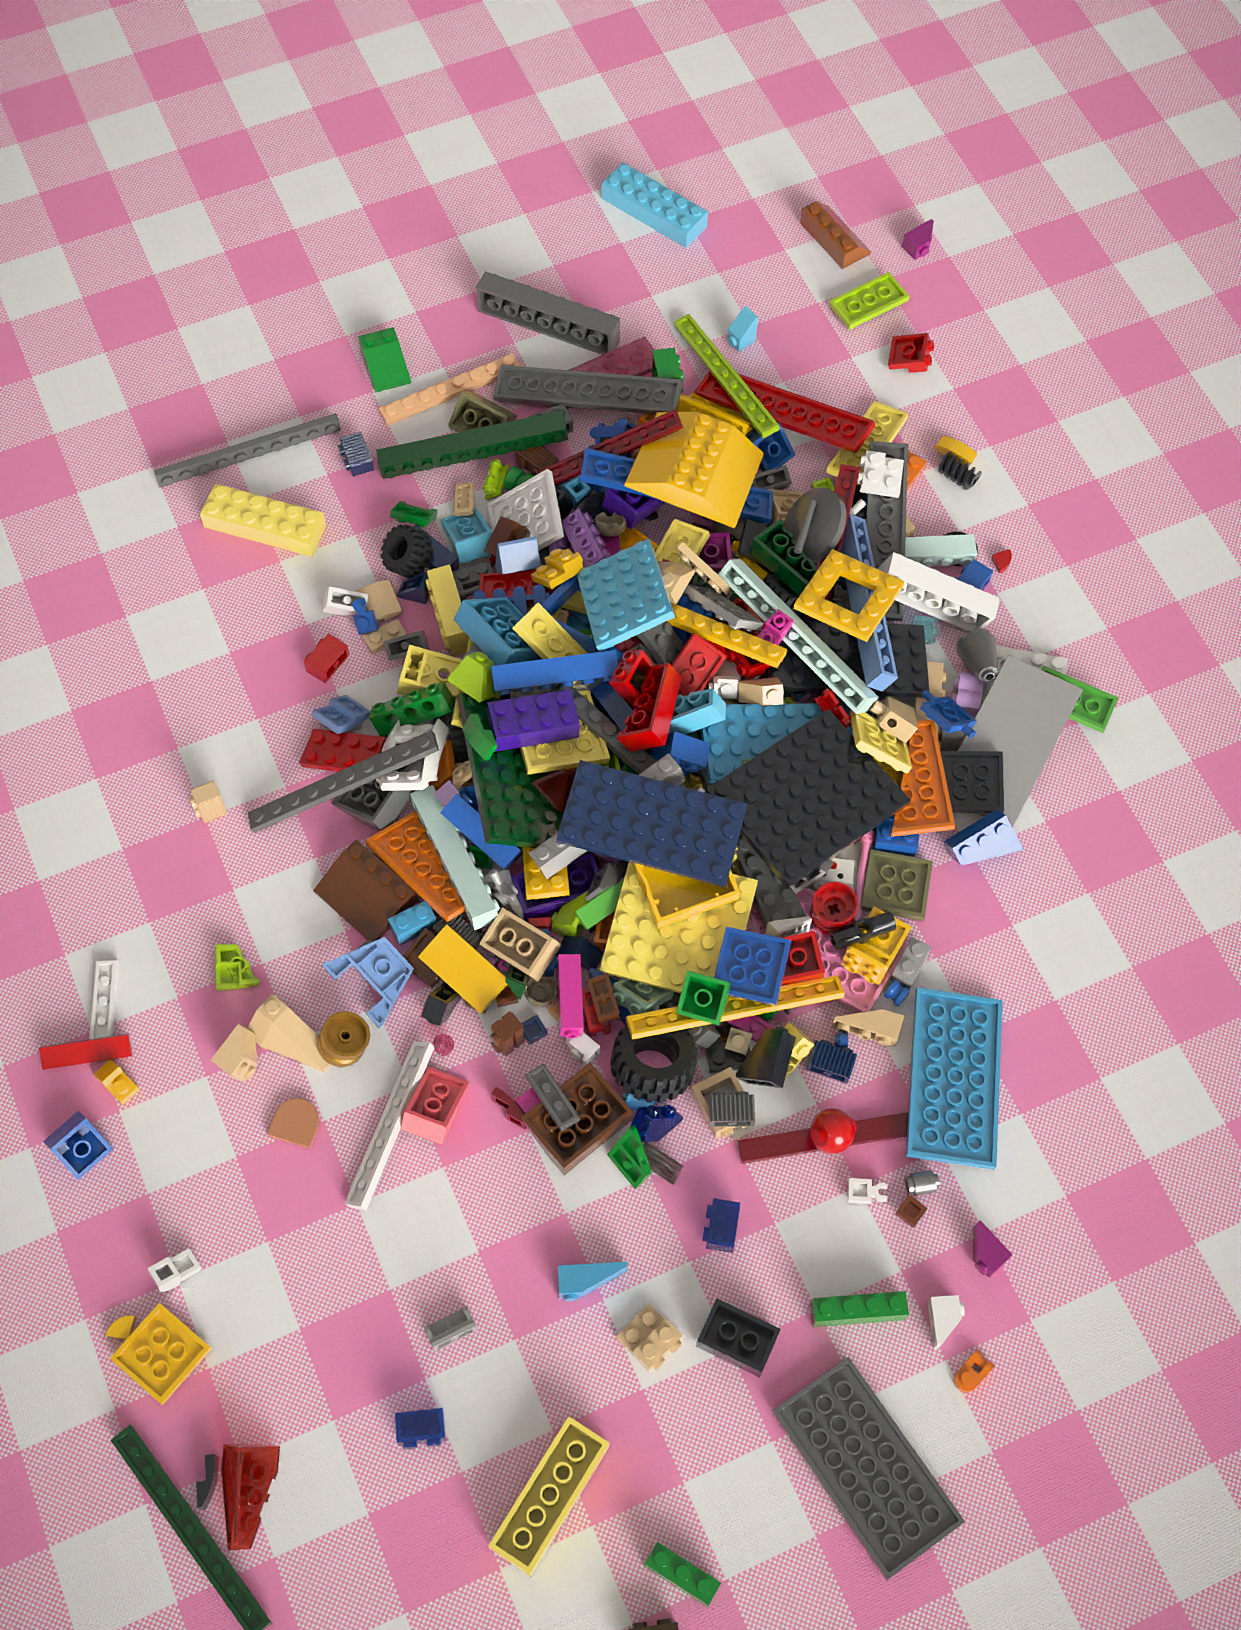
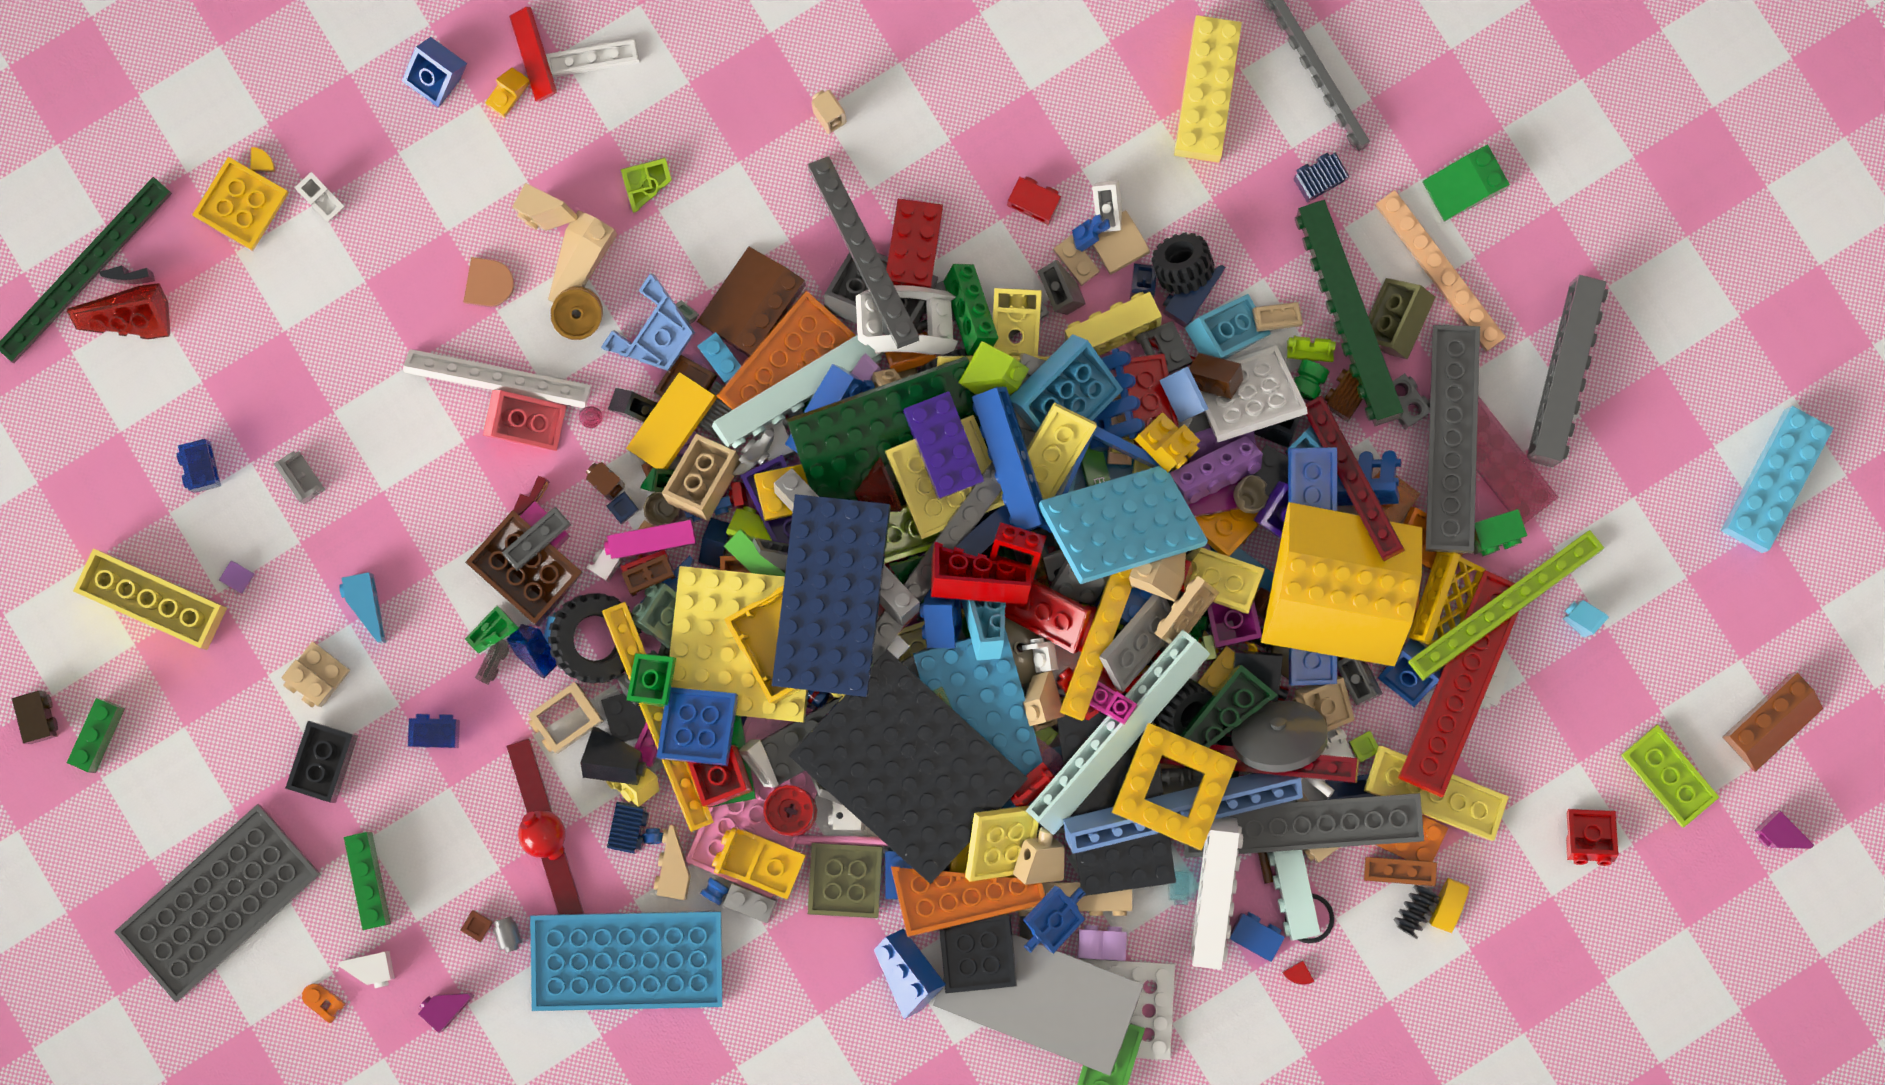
camera: 85 degrees right, 20 degrees up
(341, 714) = (962, 232): medium blue slope -> none
(408, 513) = (1239, 260): green plate -> none
(480, 739) = (902, 393): green slope -> none
(539, 1406) = (236, 576): none -> medium lavender slope
(731, 1109) = (548, 726): dark grey brick -> none
(738, 1040) = (631, 725): dark tan plate -> none
(805, 526) = (1264, 724): dark grey bar -> none
(851, 935) = (759, 830): black piece -> none
(862, 1191) = (491, 872): white plate -> none
(880, 474) = (1370, 811): white plate -> none
(926, 477) = (1400, 871): none -> dark orange plate
(979, 653) = (1145, 953): dark grey cone -> none

